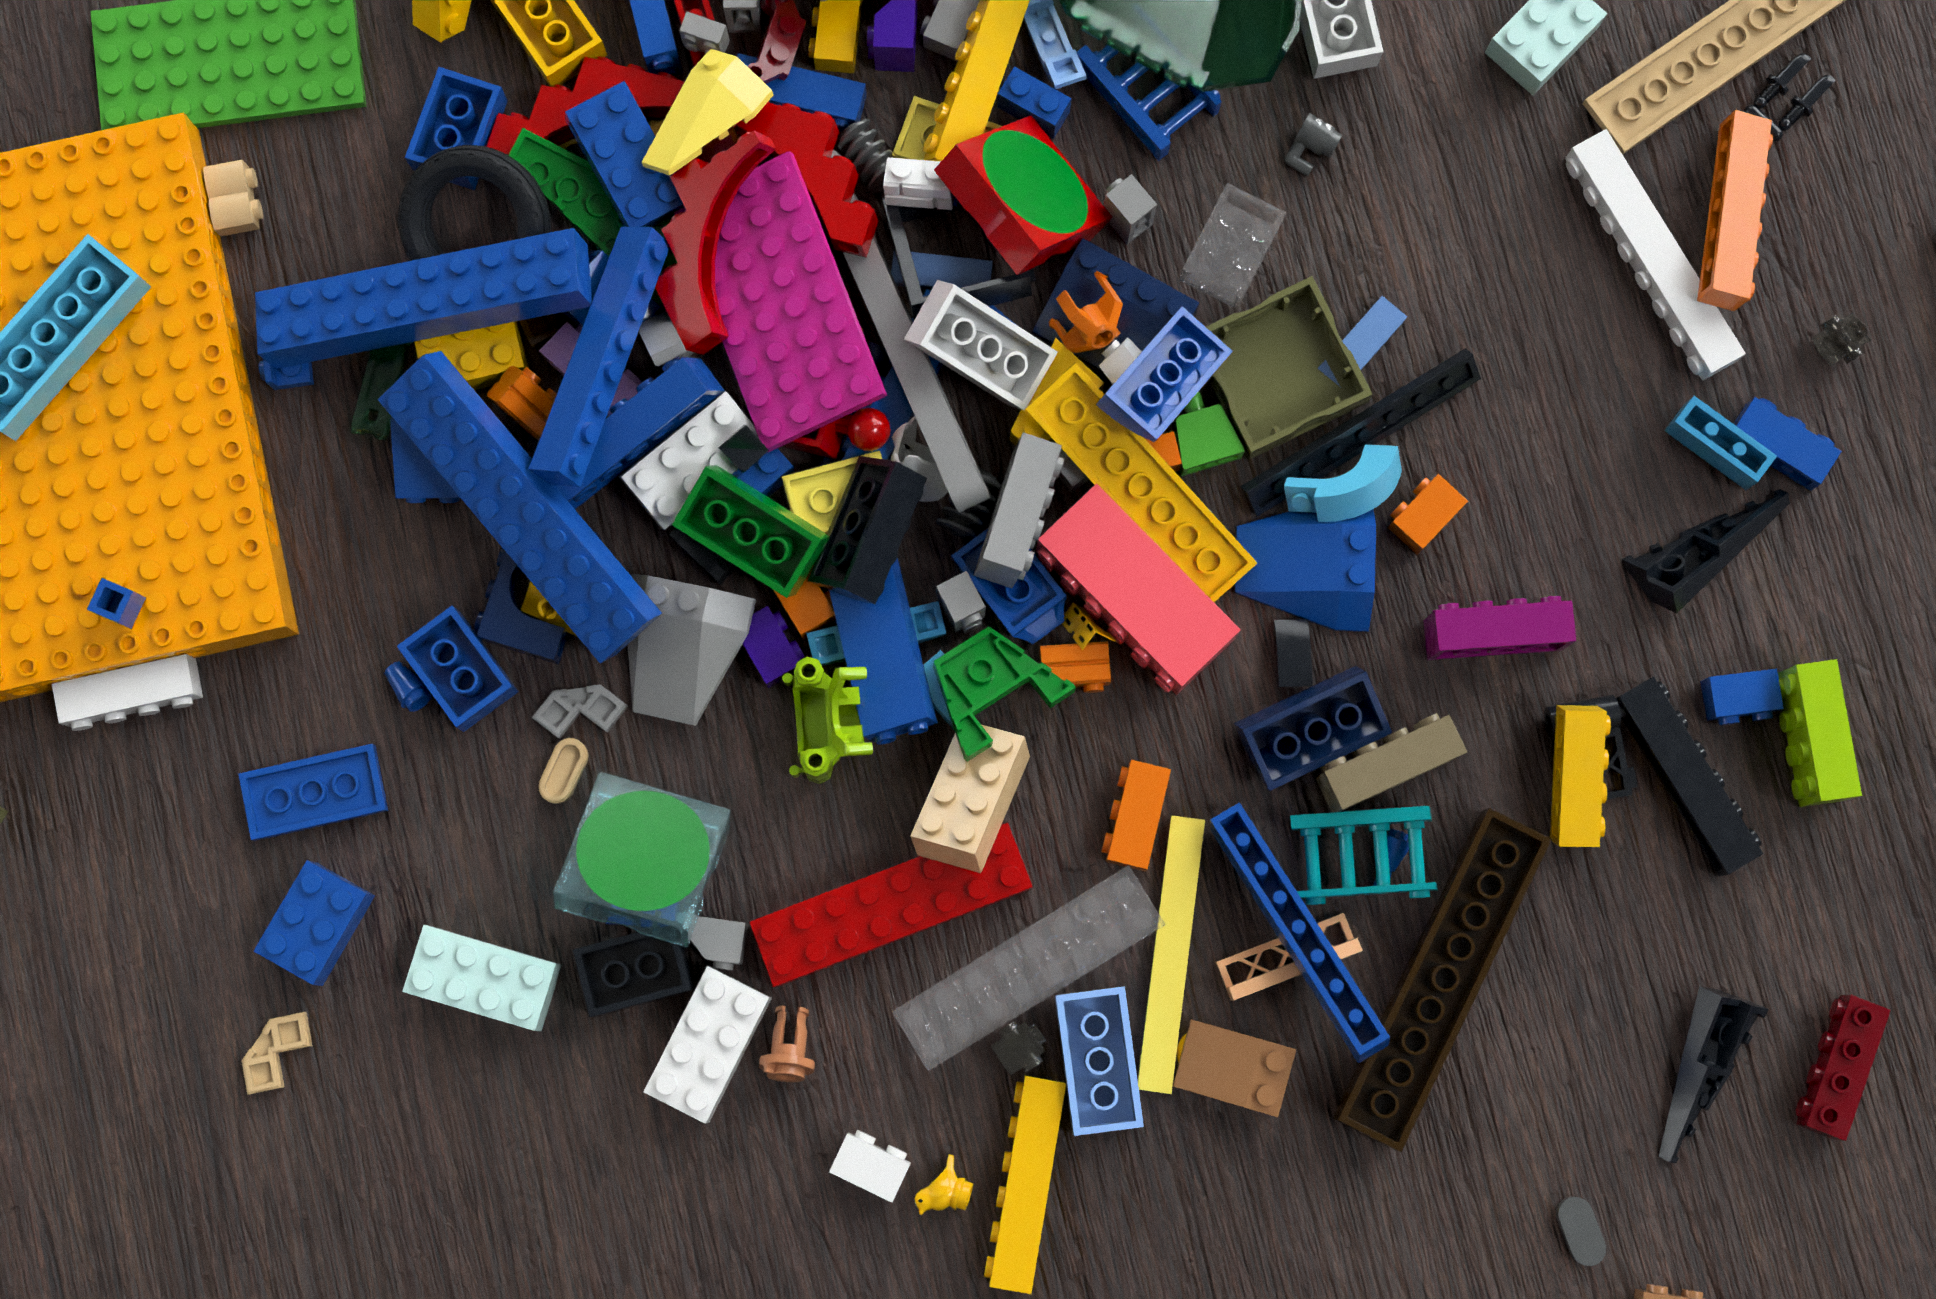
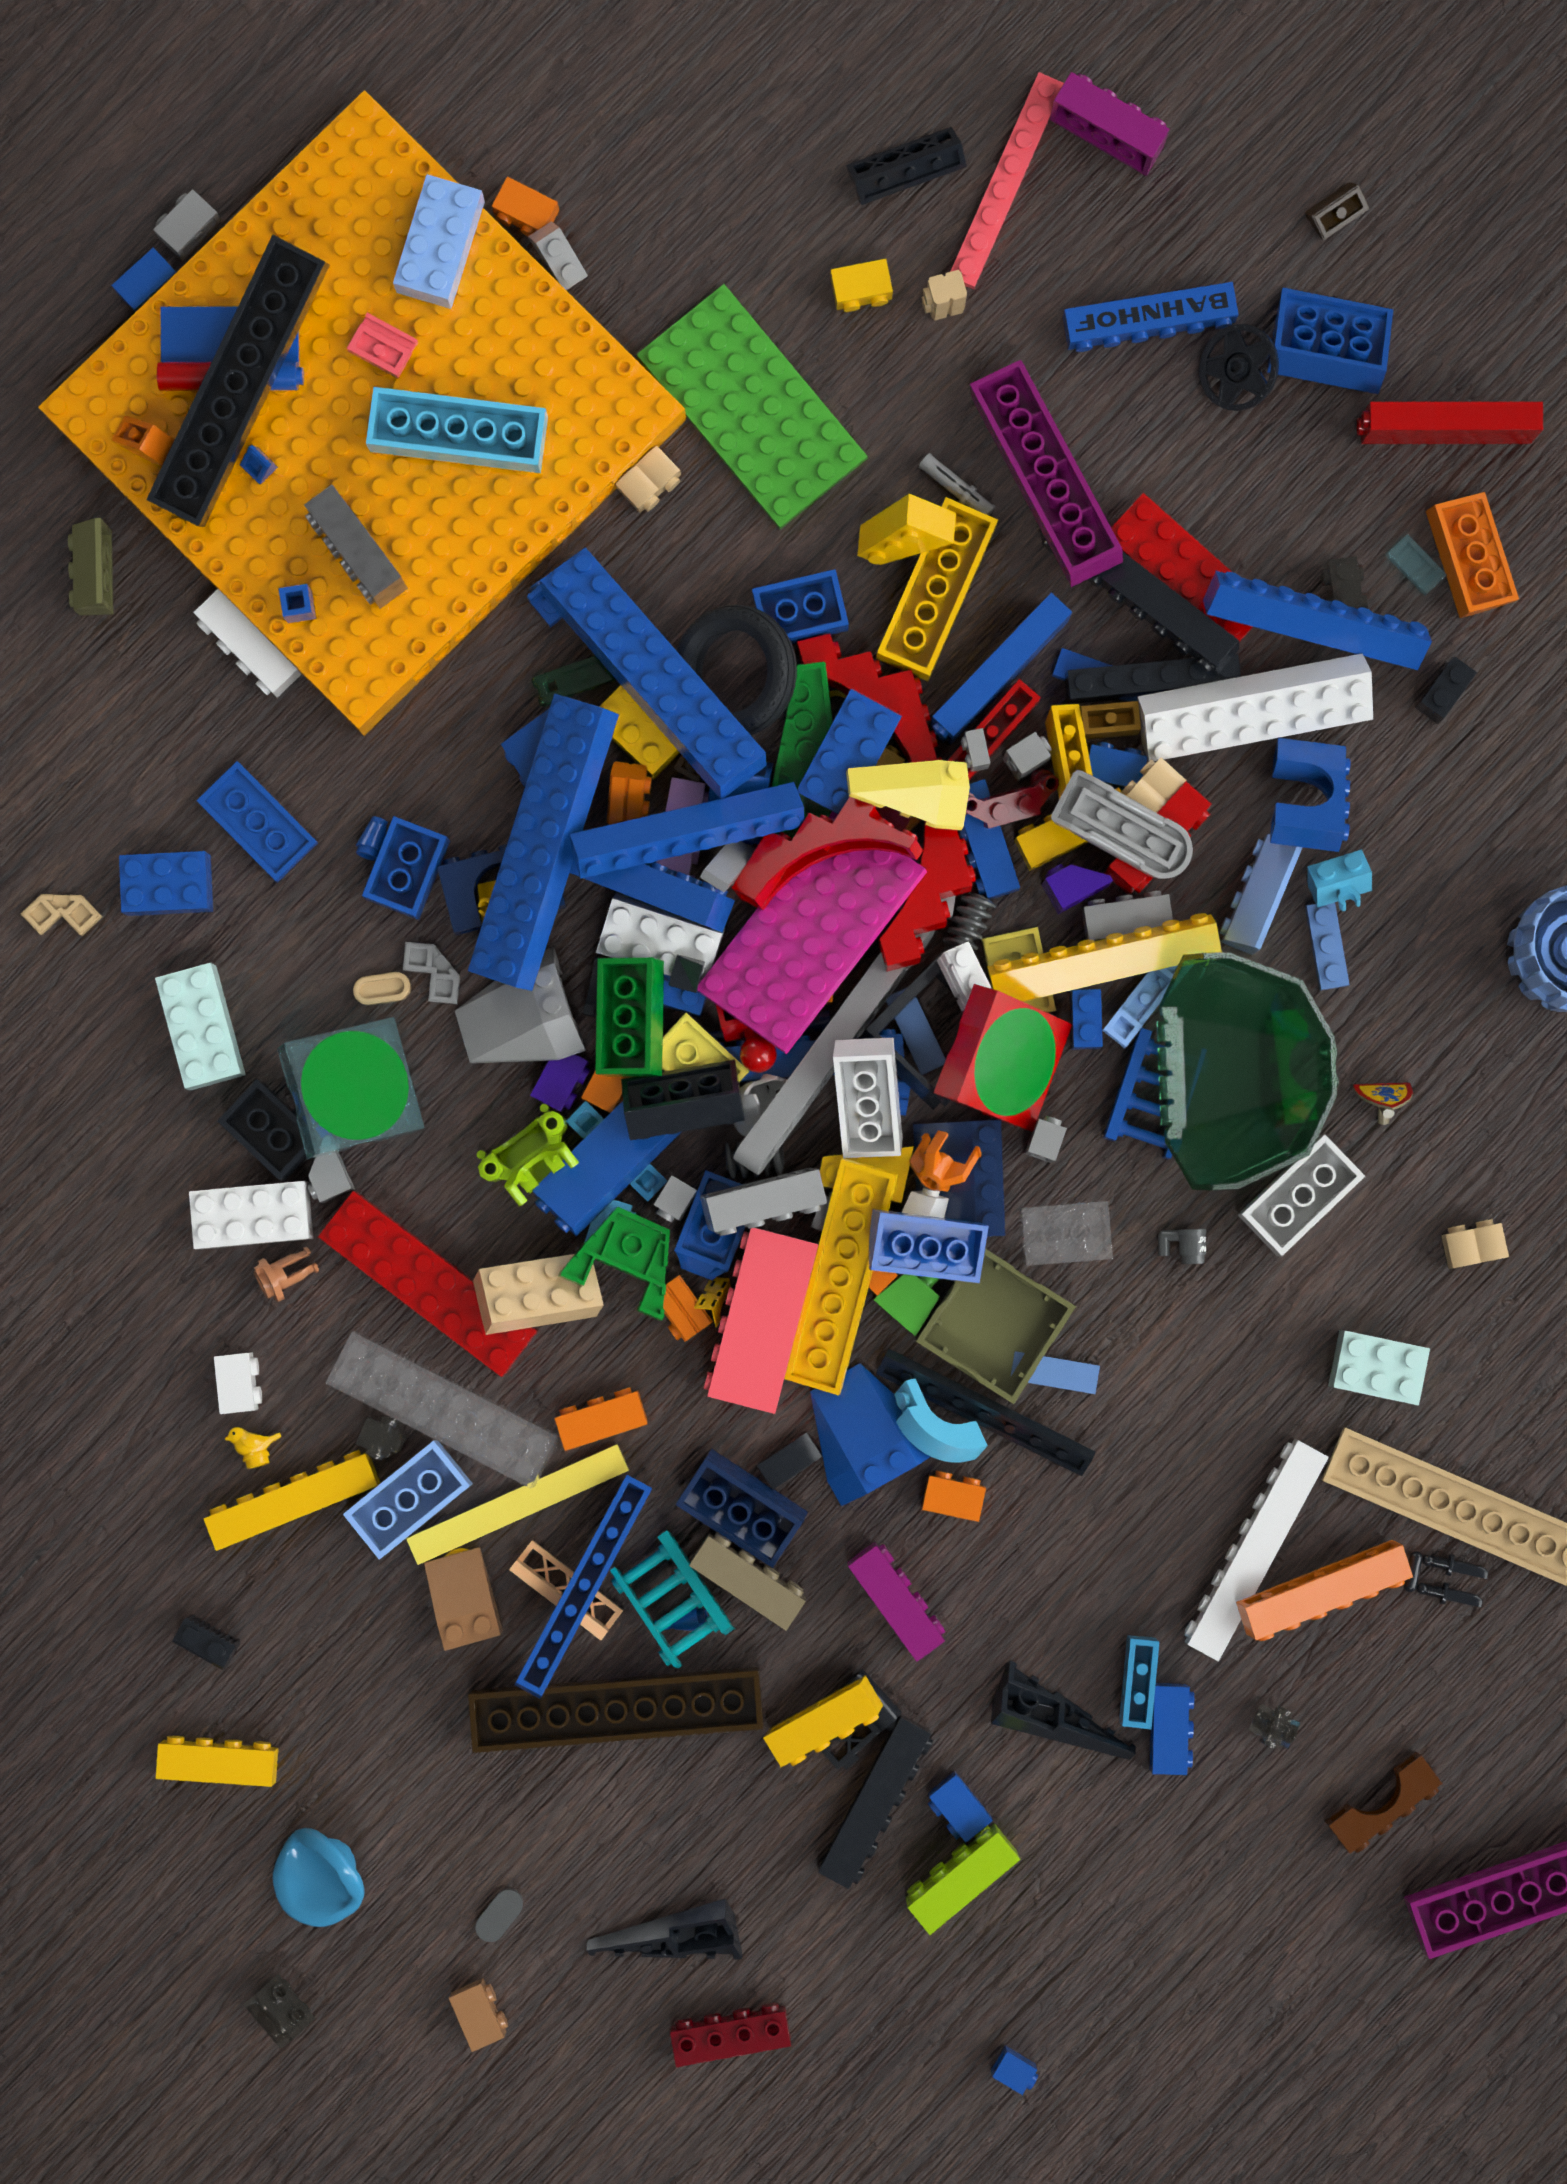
camera: 60 degrees right, 5 degrees up
(98, 509) = (360, 553): none -> flat silver brick

